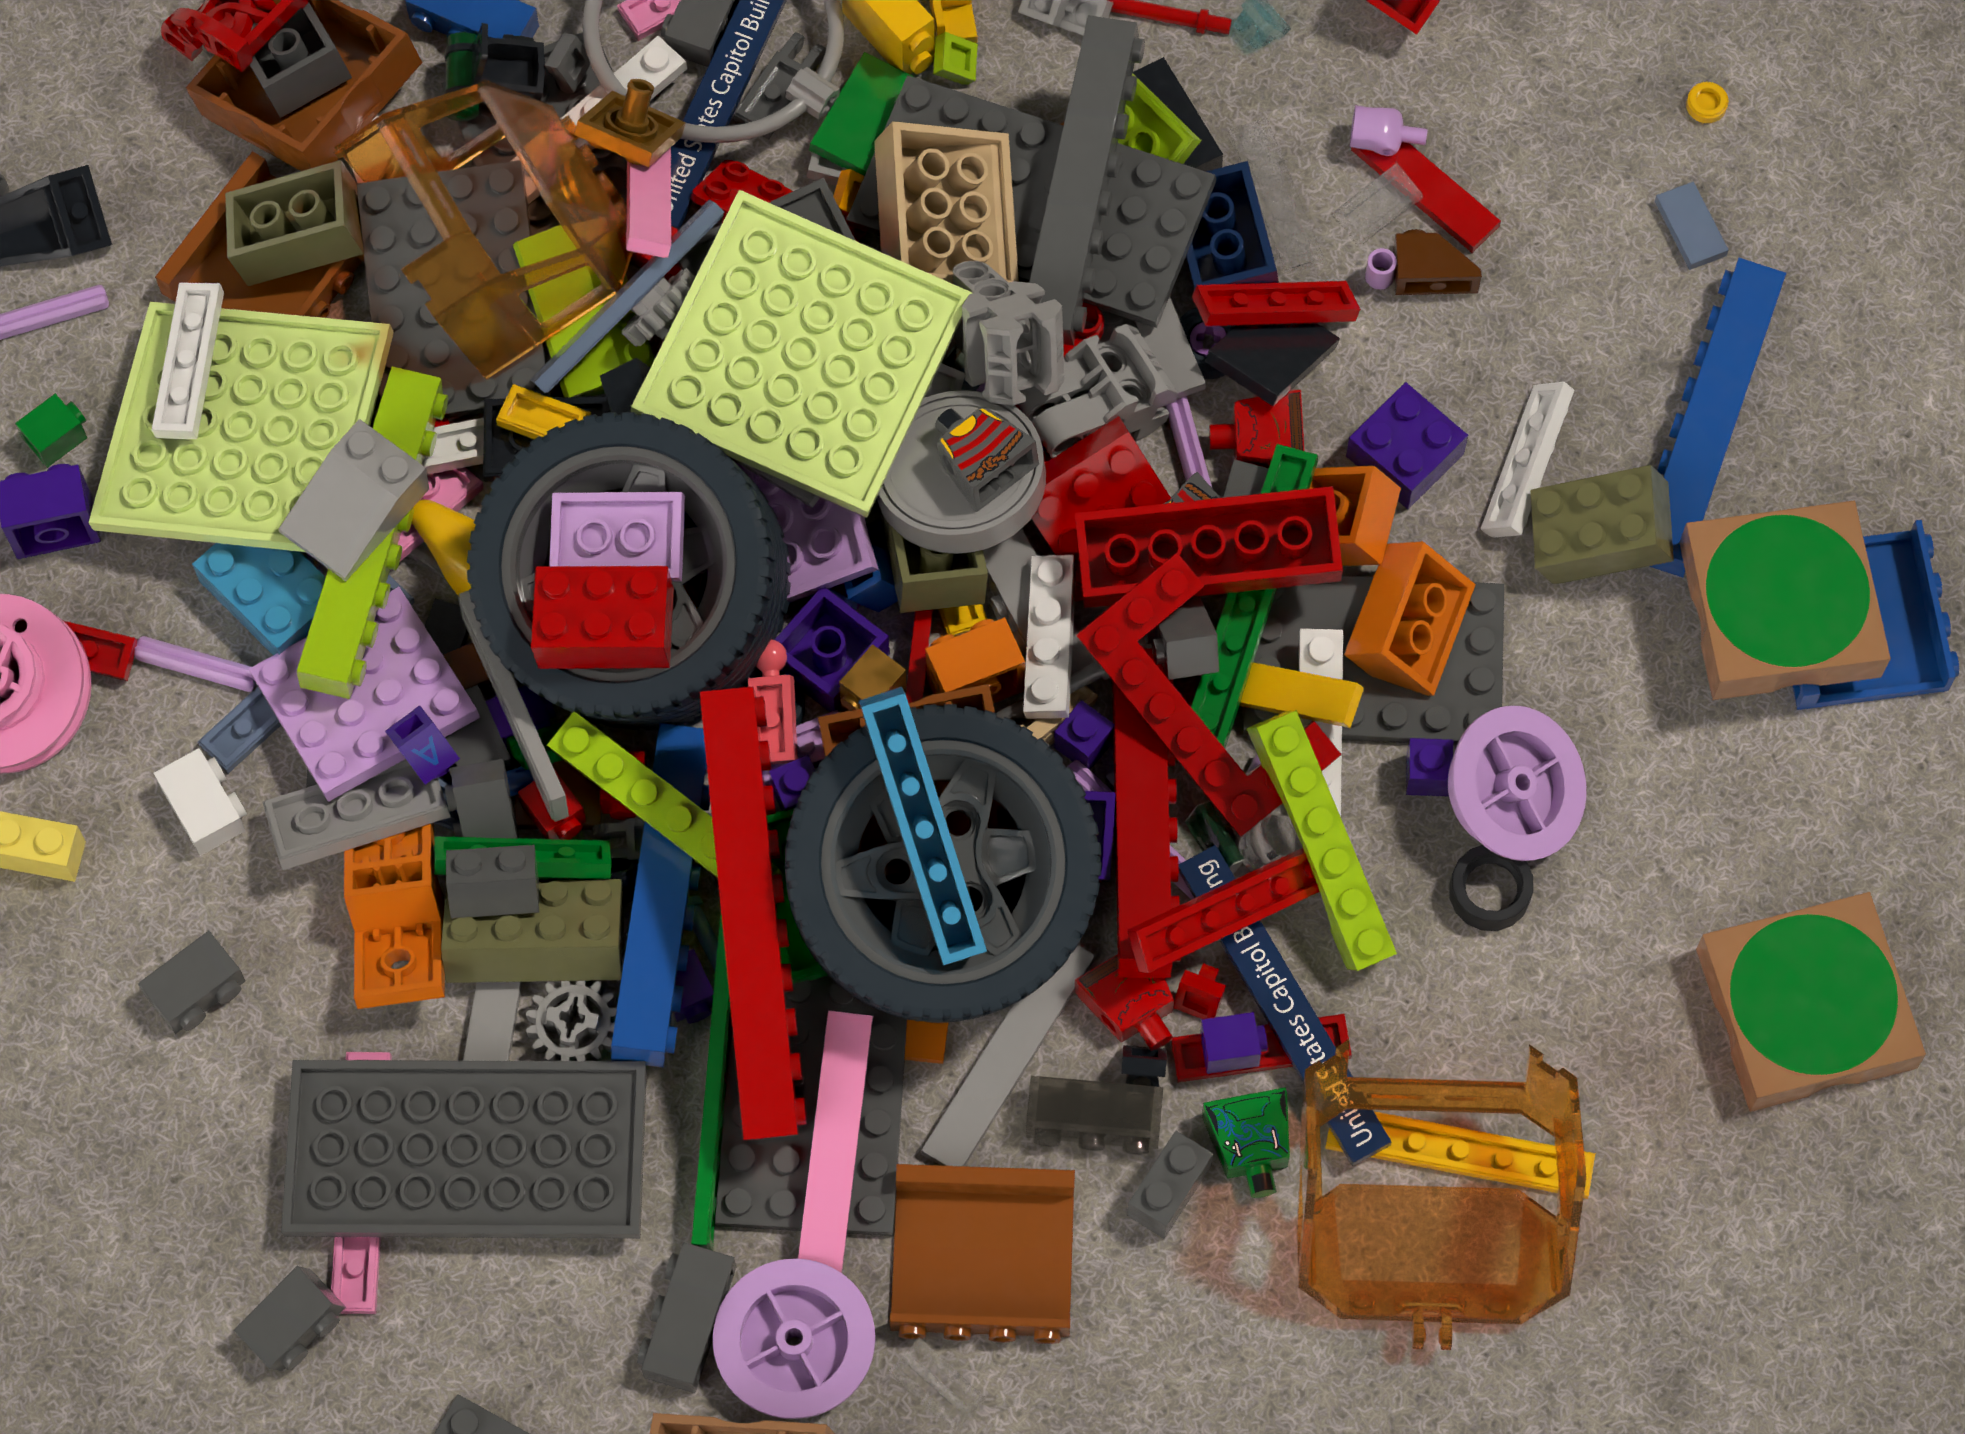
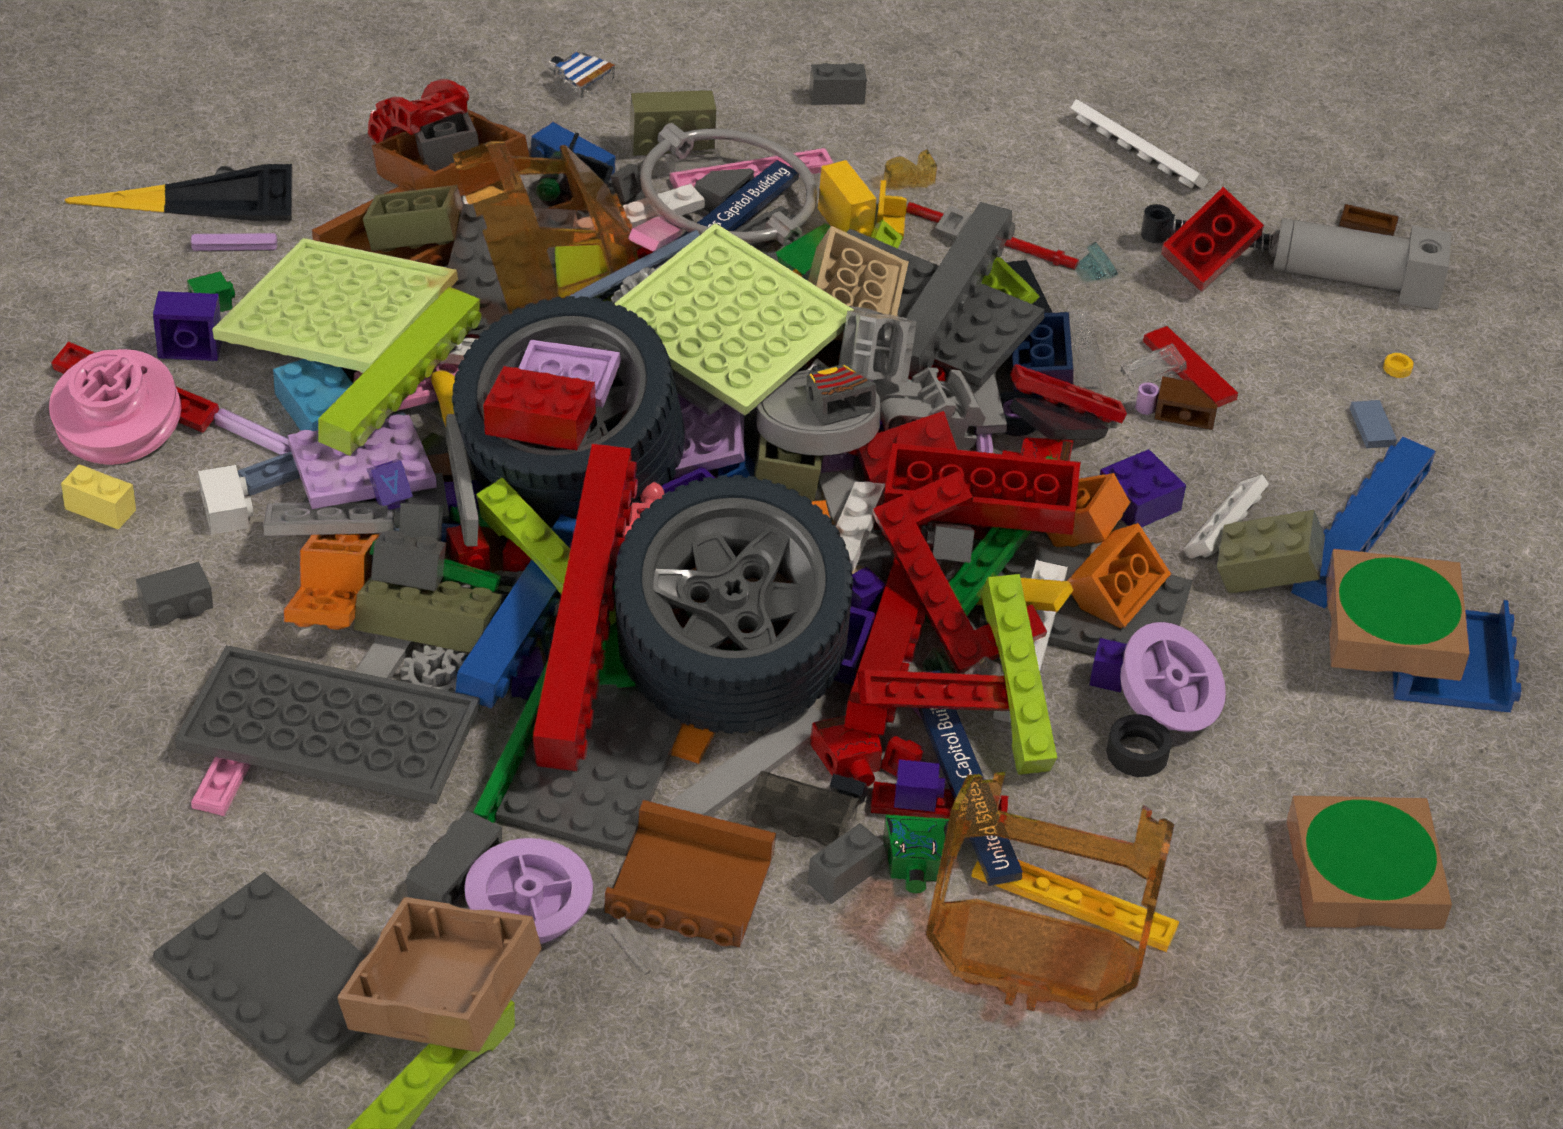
camera: 10 degrees right, 25 degrees down
(188, 361) = (314, 261): white plate -> none
(290, 1319) = (159, 794): dark grey brick -> none
(355, 500) = (397, 336): light grey slope -> none
(630, 126) = (655, 203): pearl gold plate -> none
(835, 1138) = (603, 768): bright pink tile -> none
(922, 825) = (725, 544): dark azure brick -> none
(1382, 130) = (1167, 328): lavender piece -> none

